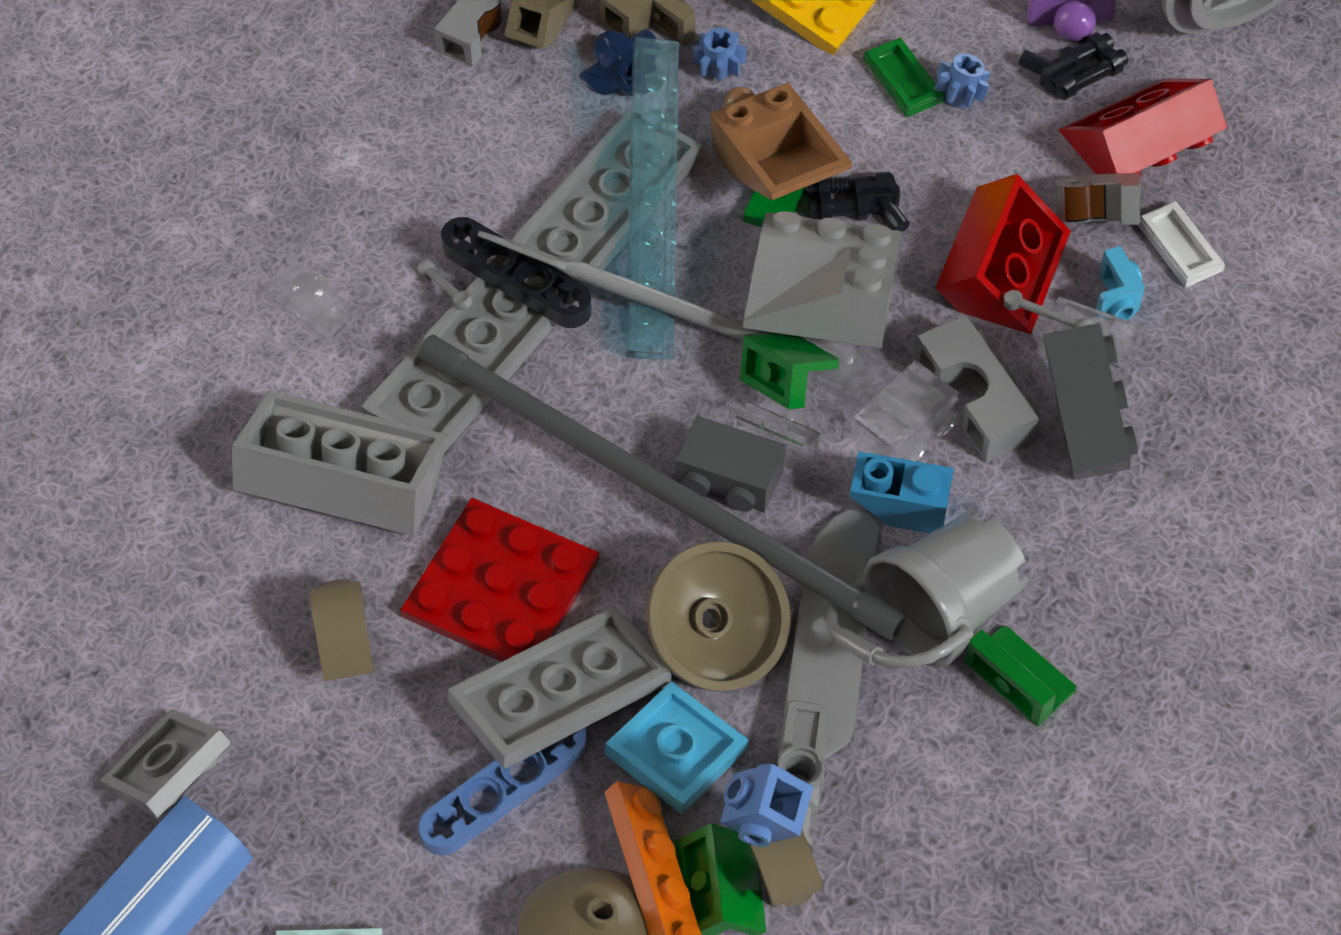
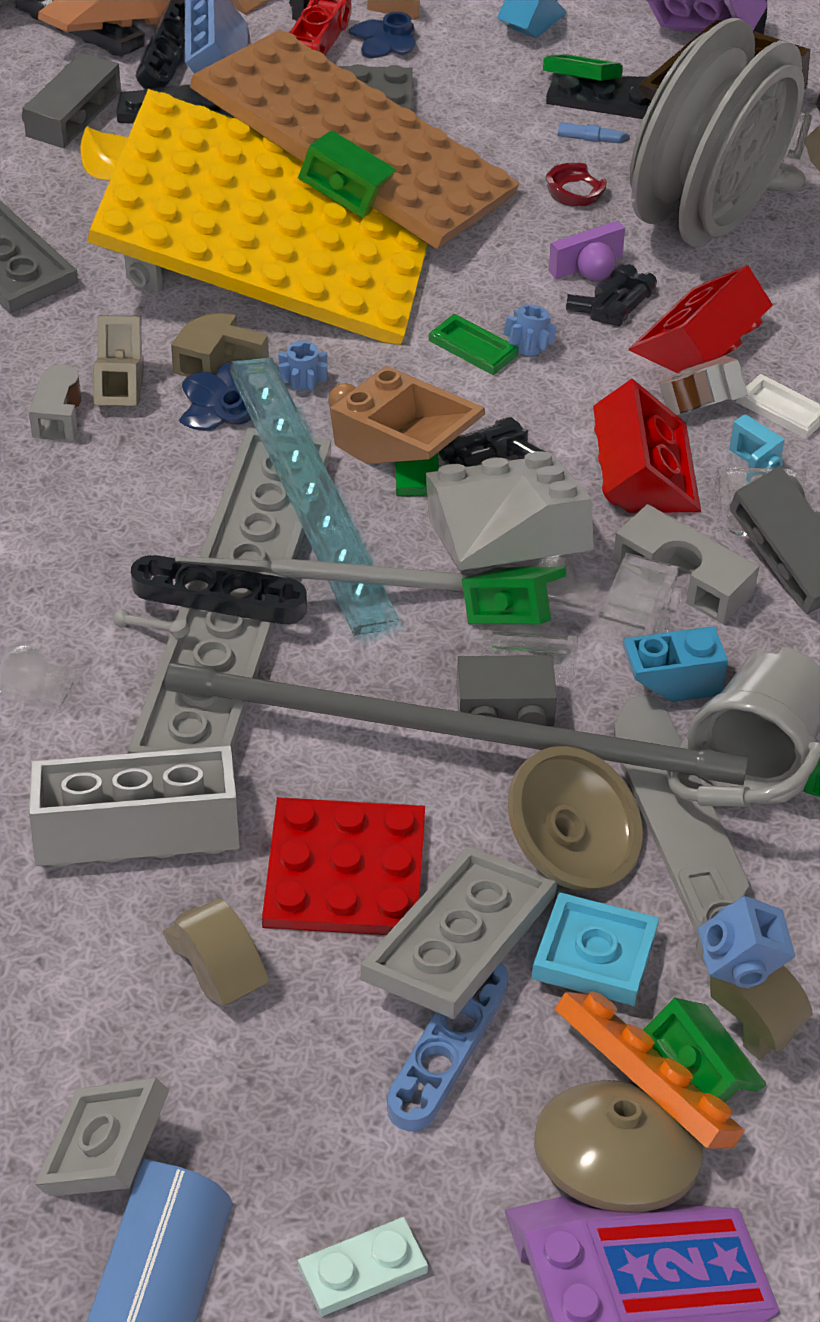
camera: 25 degrees left, 10 degrees down
(1013, 300) = (683, 481): light grey hinge -> none

